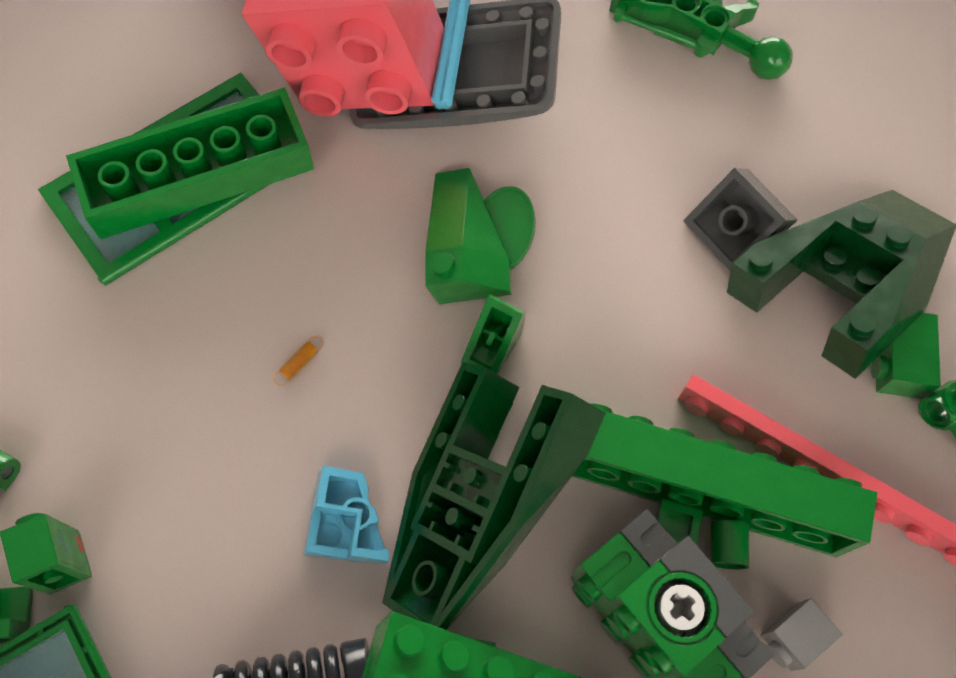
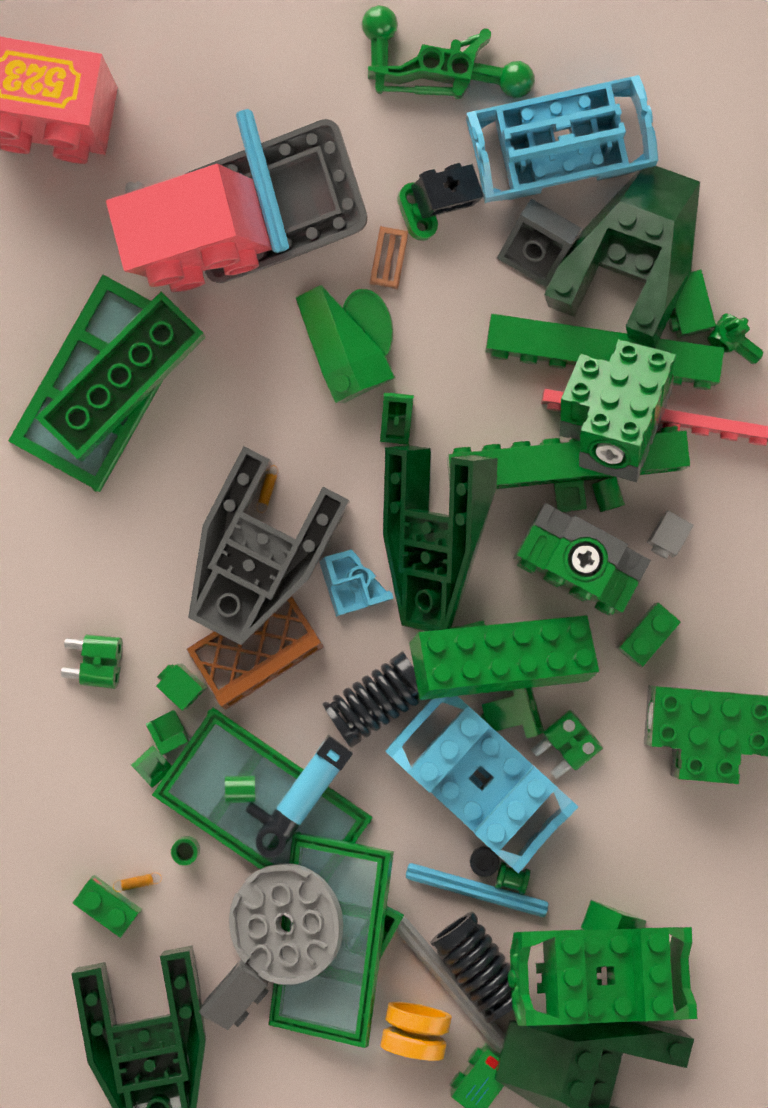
camera: 20 degrees left, 20 degrees up
(170, 585) = (261, 672): none -> dark orange fence
(224, 433) = (248, 566): none -> dark grey wedge
(545, 195) = (384, 282): none -> nougat tile
(611, 146) = (412, 215): none -> green plate
(654, 126) = (447, 190): none -> black brick
(788, 368) = (564, 343): none -> green brick
(792, 419) = (617, 407): none -> piece
(811, 122) = (590, 150): none -> medium azure piece

